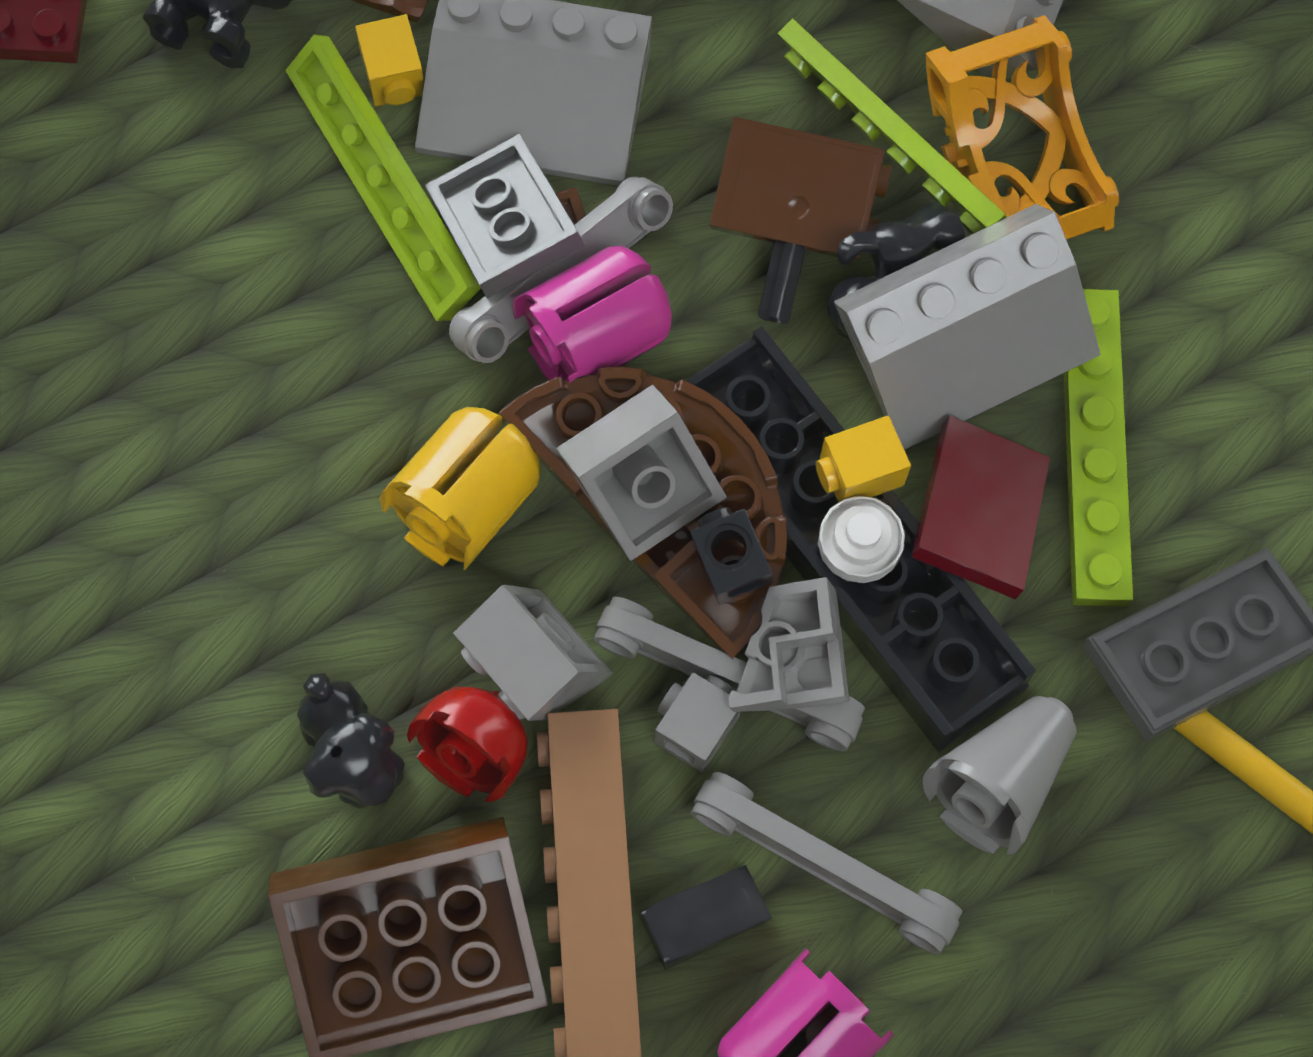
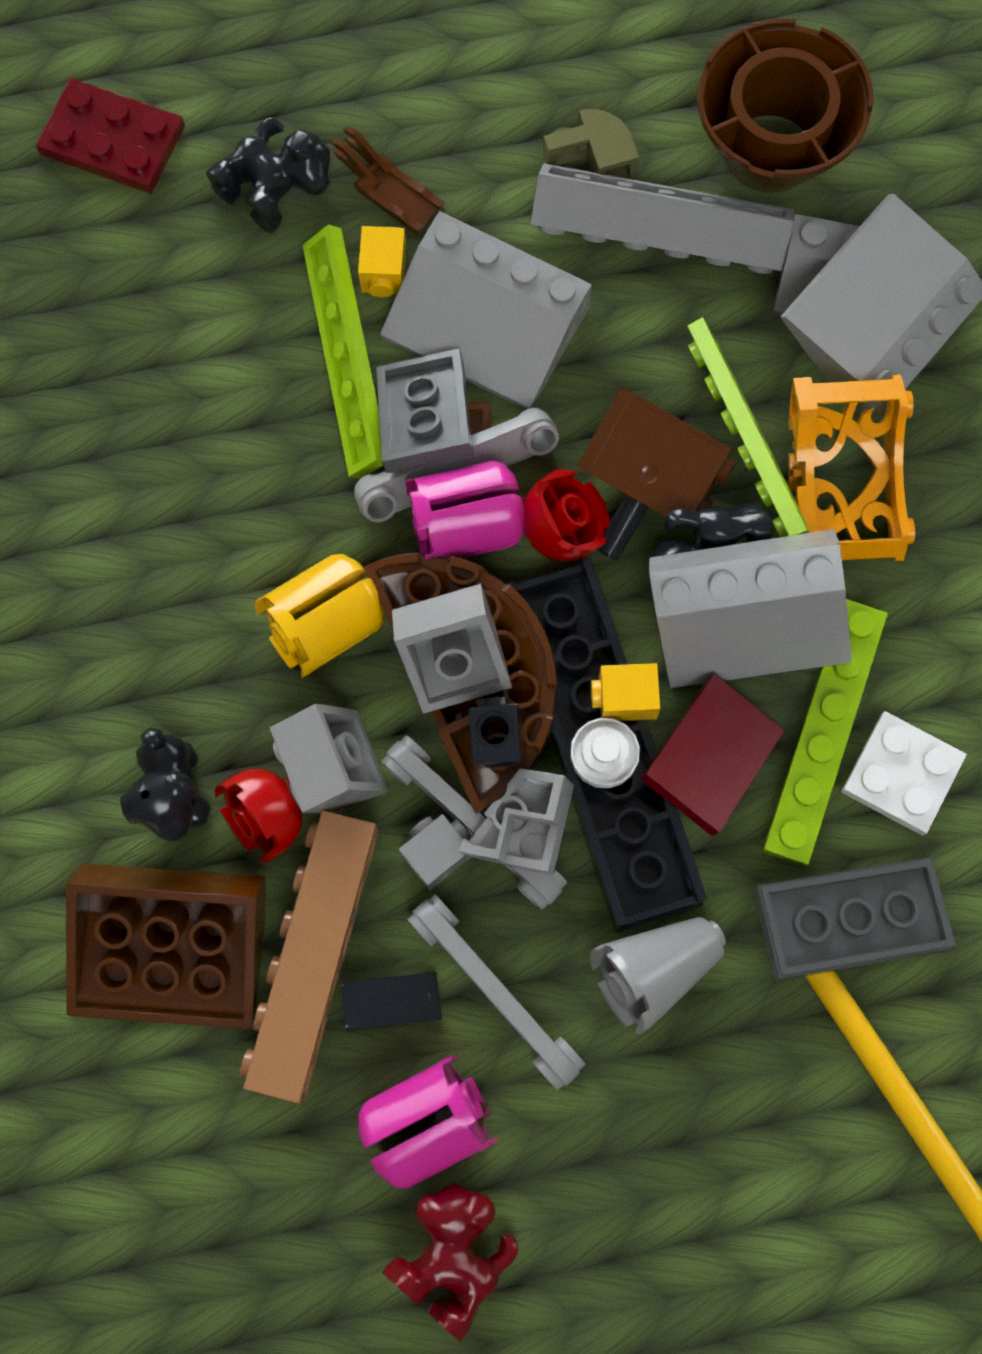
camera: 25 degrees right, 5 degrees up
(713, 290) = (564, 517): none -> red cylinder
(1200, 465) = (903, 773): none -> white plate

